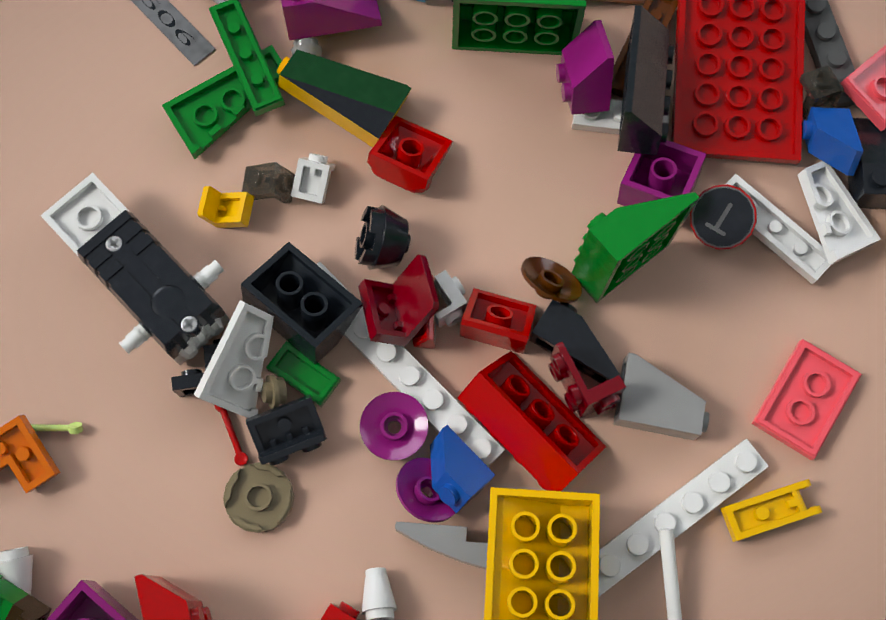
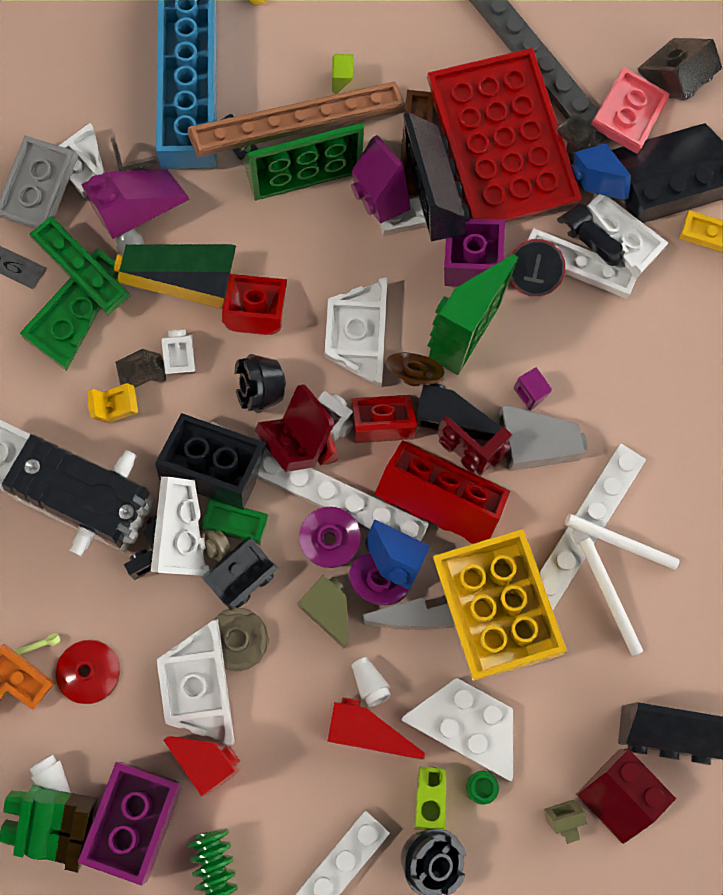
camera: 25 degrees left, 0 degrees up
(112, 477) = (102, 677): none -> red dish
(197, 531) = (196, 685): none -> white wing
(240, 458) = (208, 612): red hinge -> none
(364, 500) = (328, 608): none -> olive slope
(506, 219) = (357, 330): none -> white wing
(670, 344) = (532, 388): none -> magenta slope
(707, 547) = (621, 541): none -> white bar
(767, 511) = (658, 496): yellow hinge -> none
(790, 187) = (581, 224): none -> black piece
(806, 399) = (656, 394): coral tile -> none

